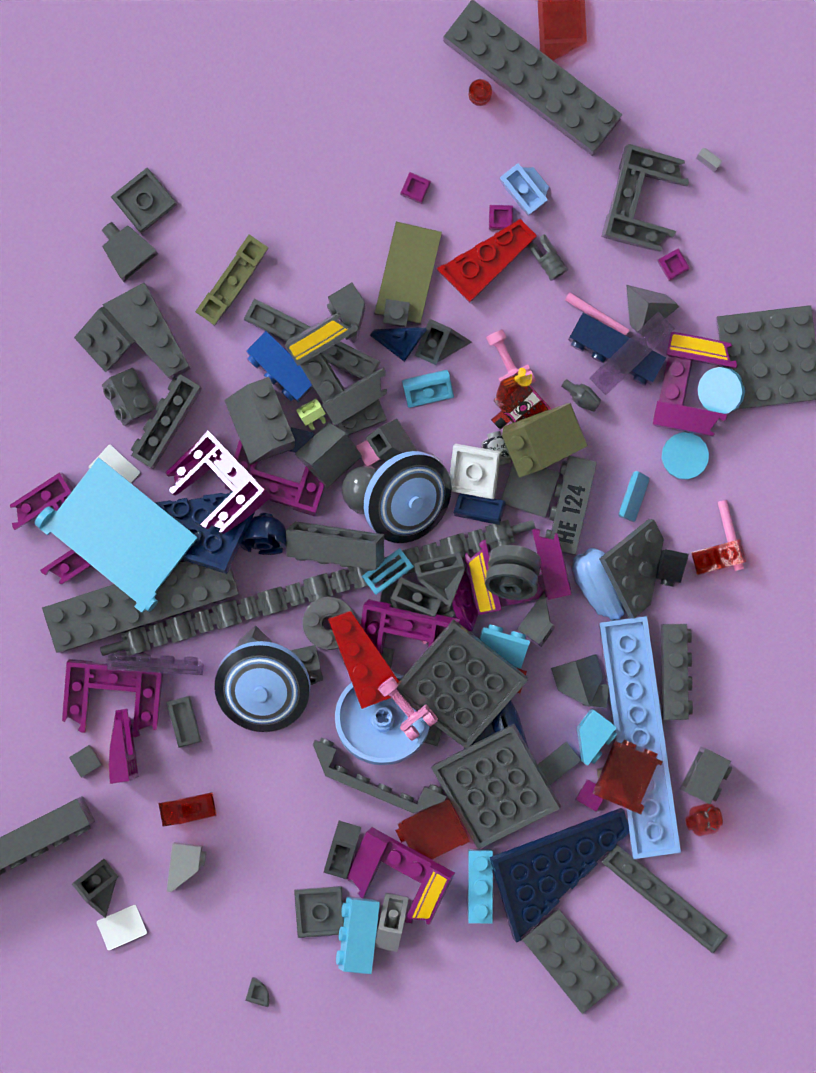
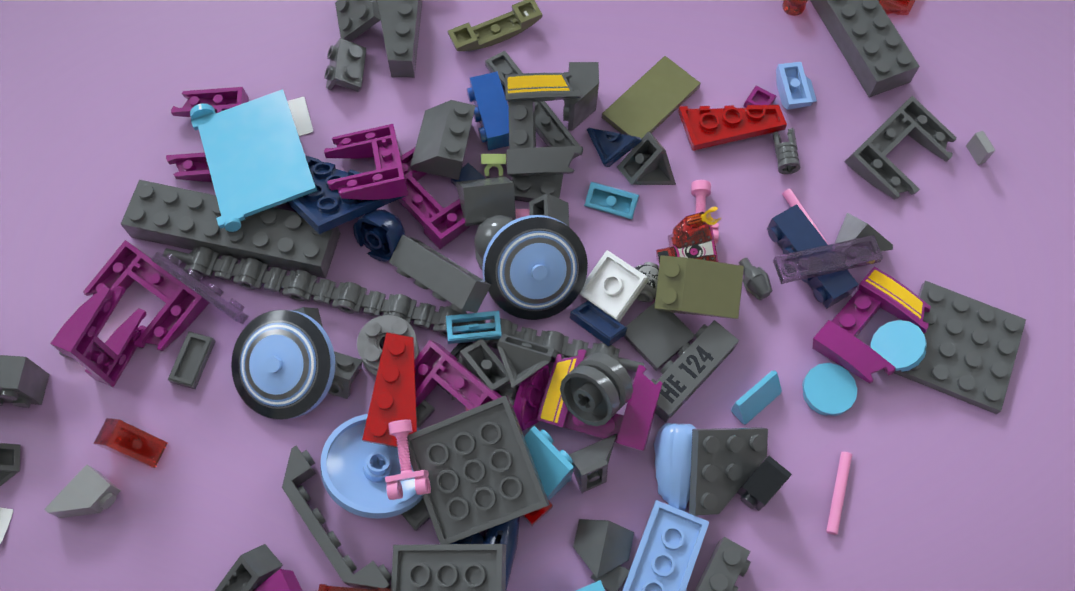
camera: 30 degrees right, 20 degrees down
(166, 422) = (362, 97): dark grey brick -> none
(396, 313) = (621, 120): dark grey plate -> none
(415, 187) = (697, 42): magenta tile -> none
(673, 264) = (902, 217): magenta tile -> none
(718, 557) = (816, 506): clear red slope -> none

